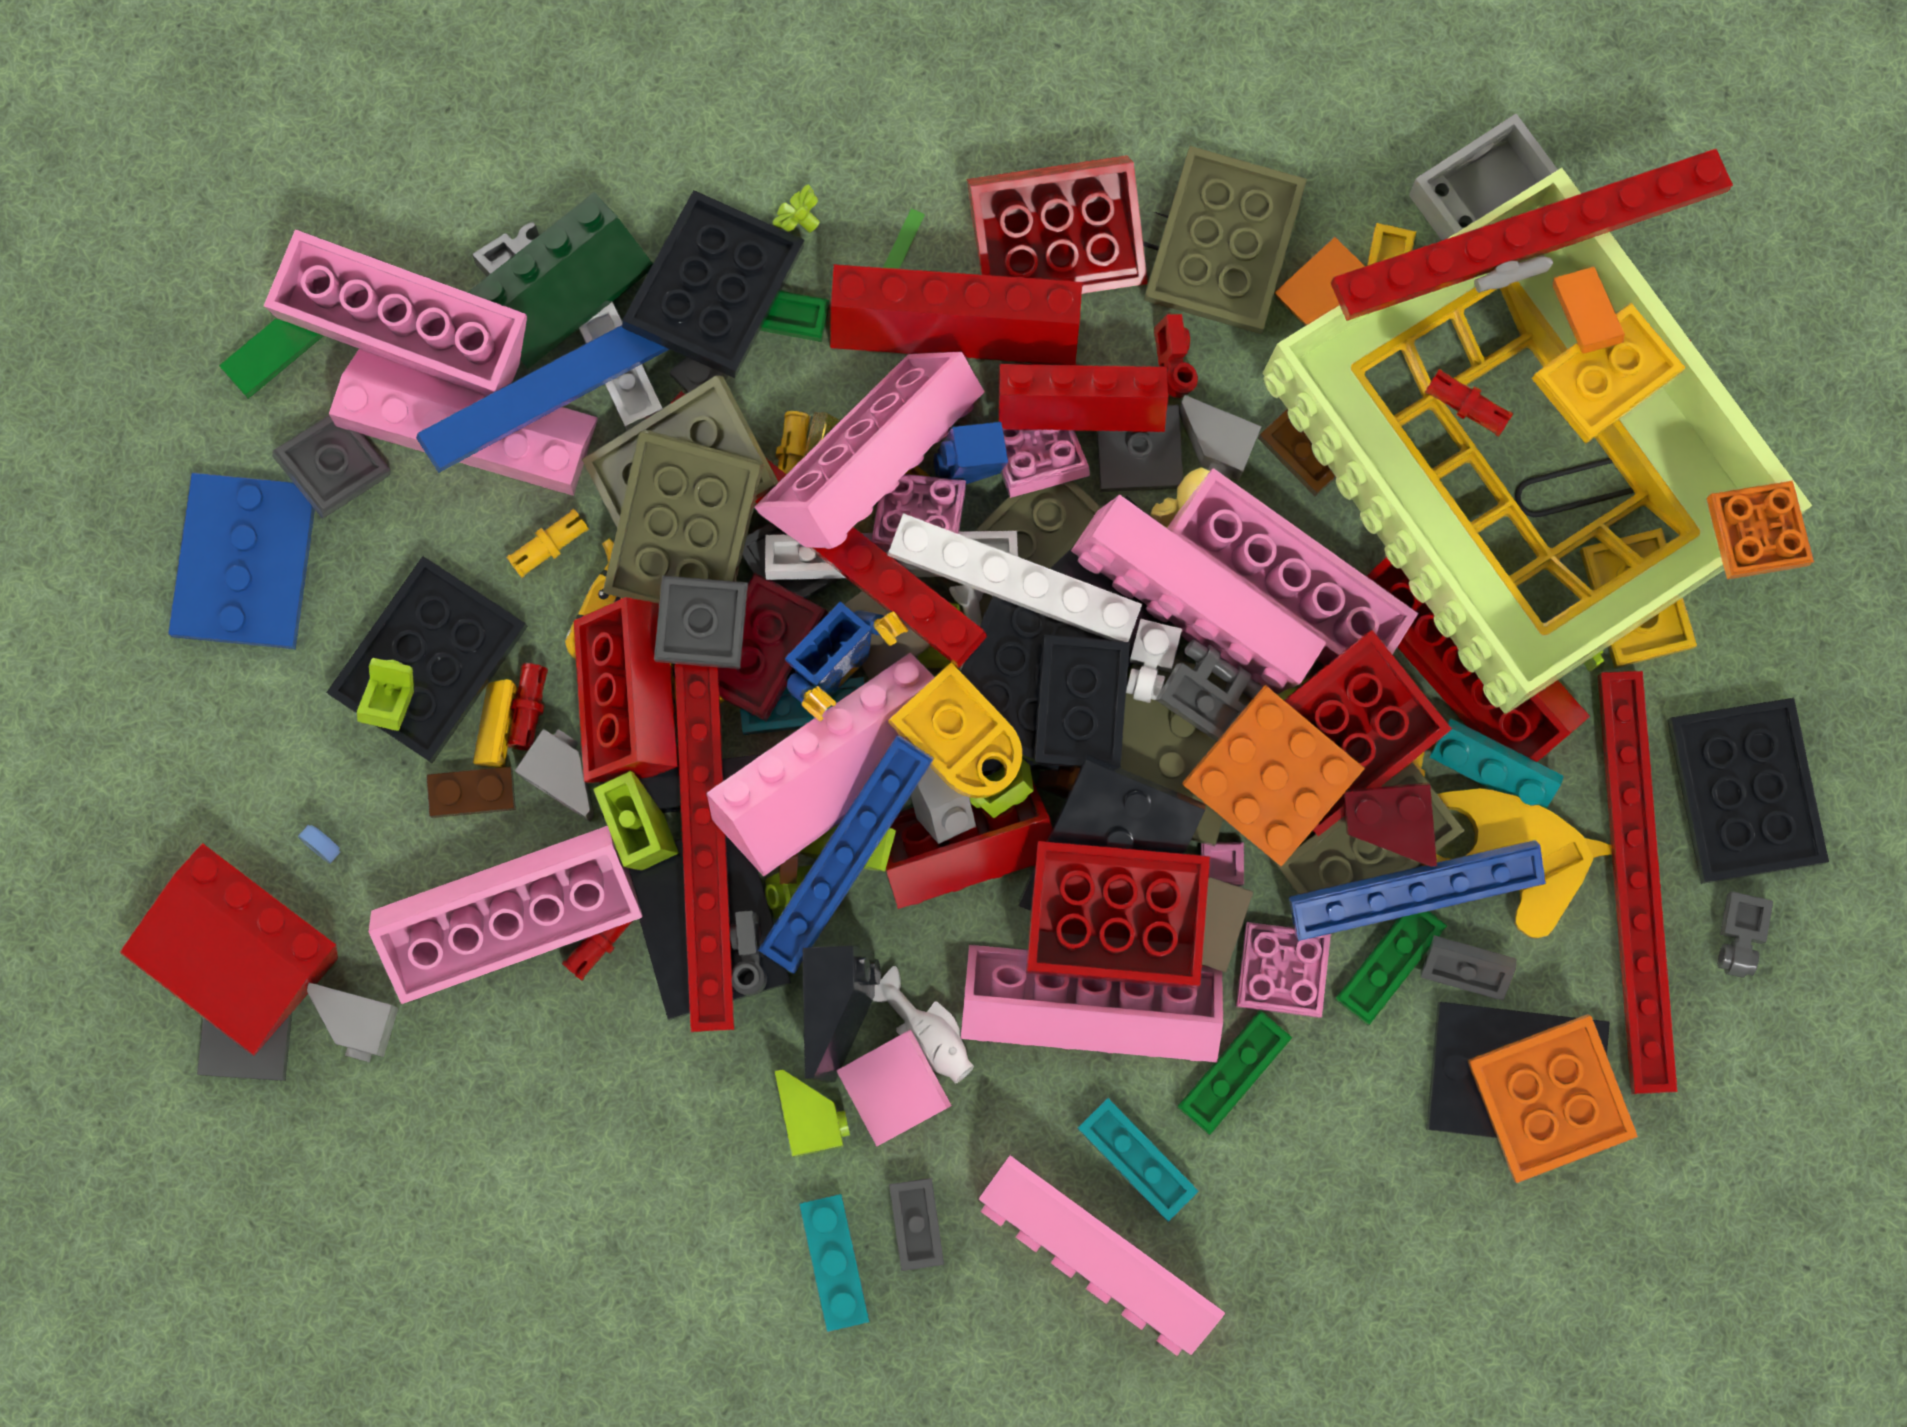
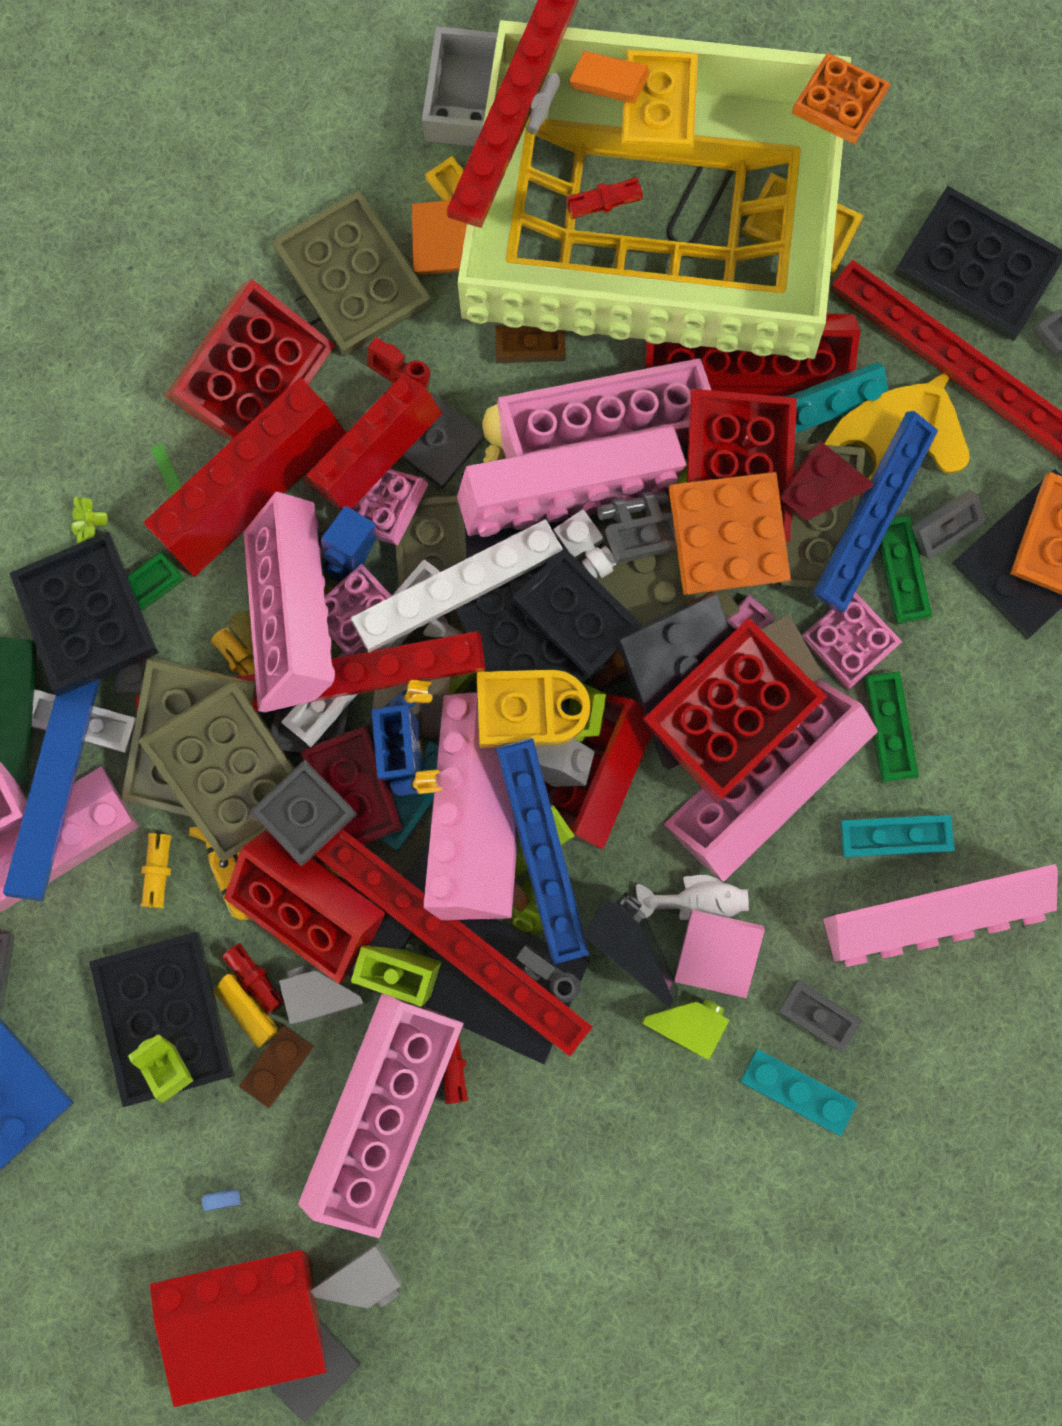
camera: 45 degrees left, 0 degrees up
(1218, 437) = (474, 384): light grey slope -> none

